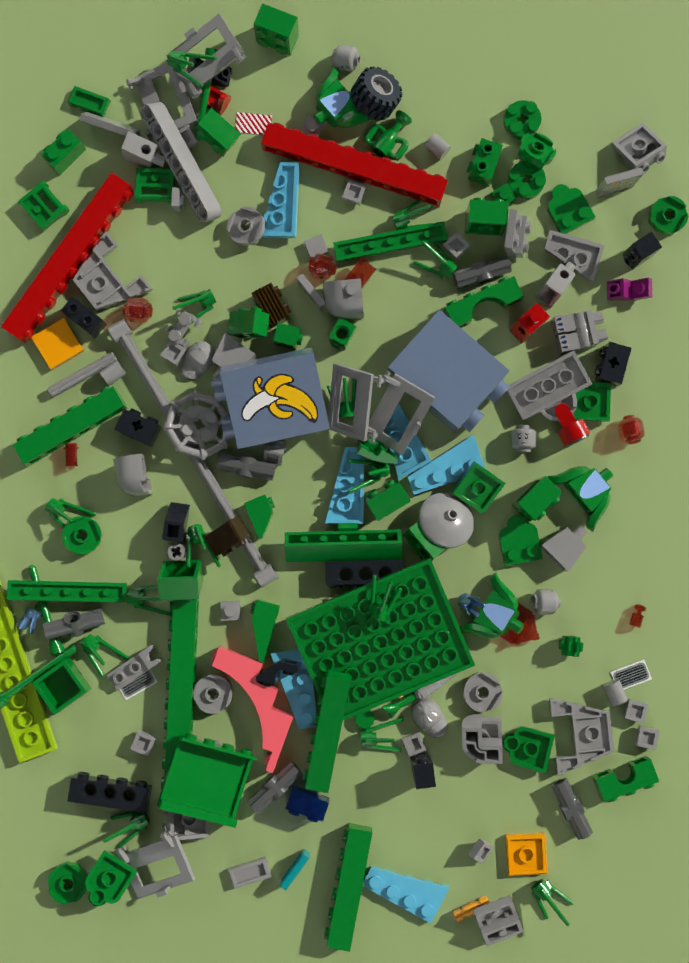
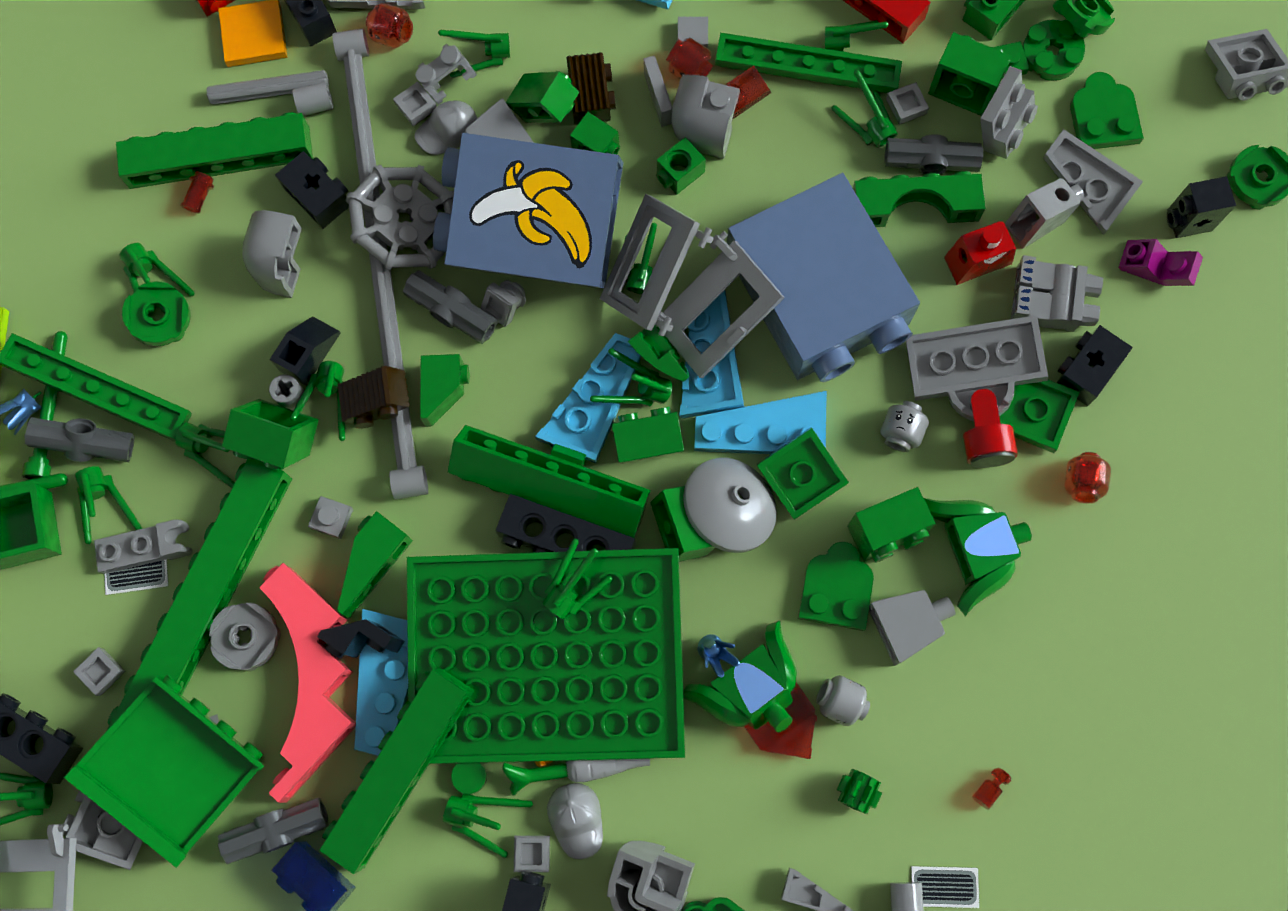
camera: 30 degrees right, 10 degrees down
(471, 693) = (700, 814): light grey plate -> none
(619, 182) = (1199, 95): light grey tile -> none

